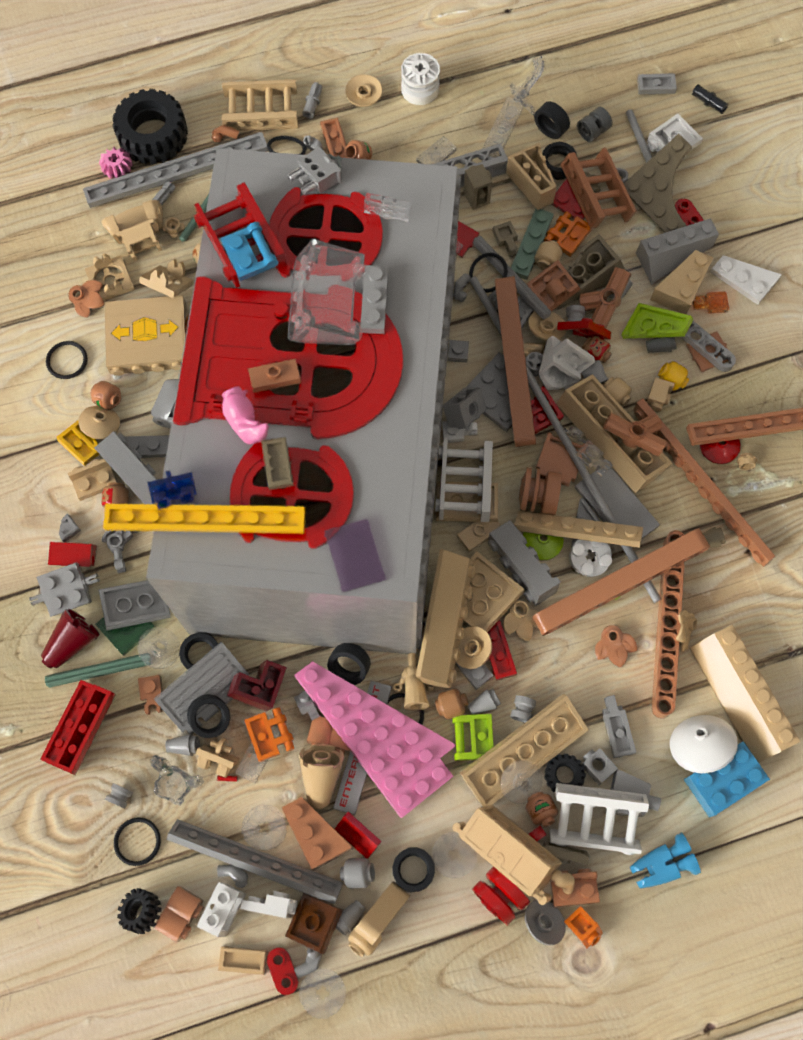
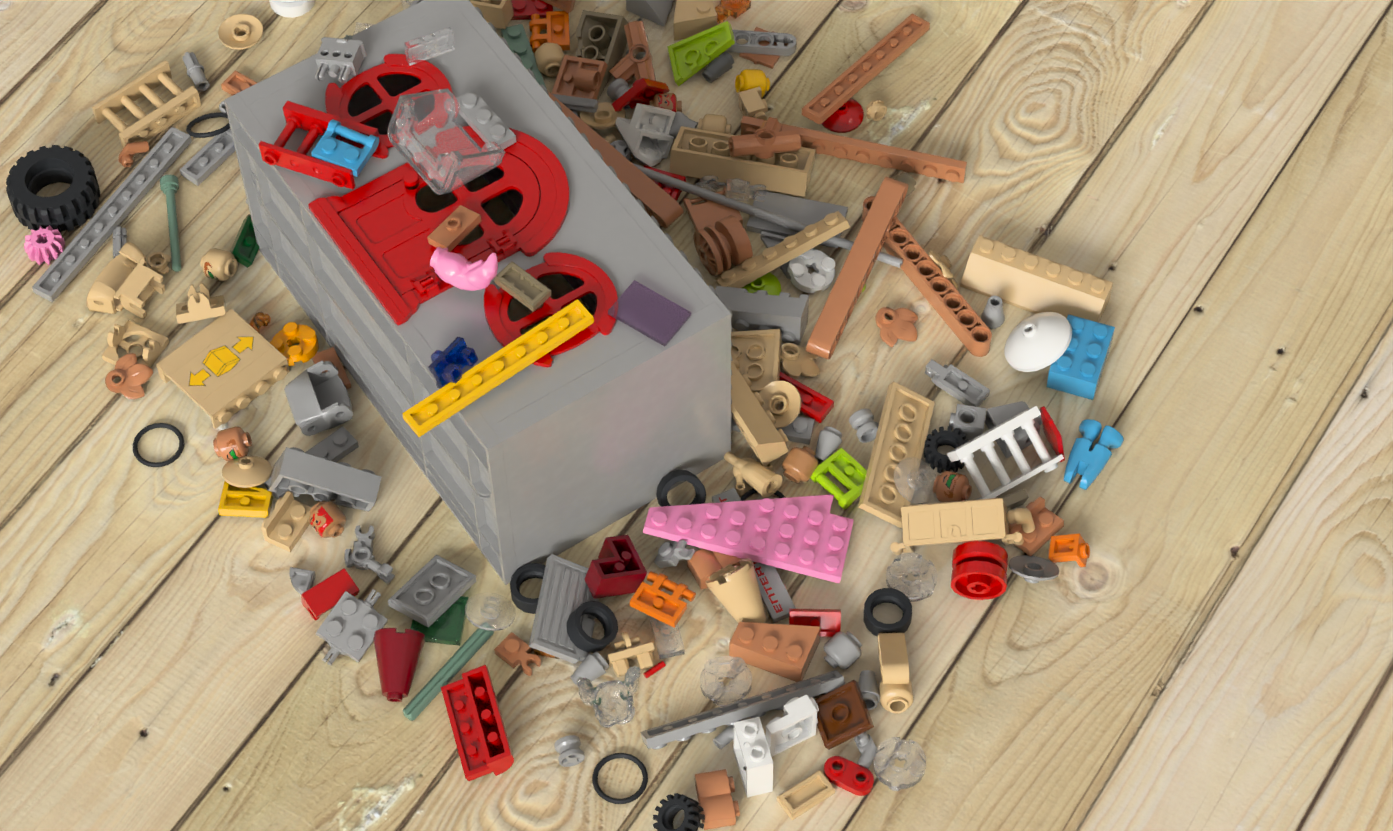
camera: 40 degrees left, 15 degrees down
(648, 828) = (1051, 432): none -> red piece
(687, 694) = (993, 313): none -> light grey cone

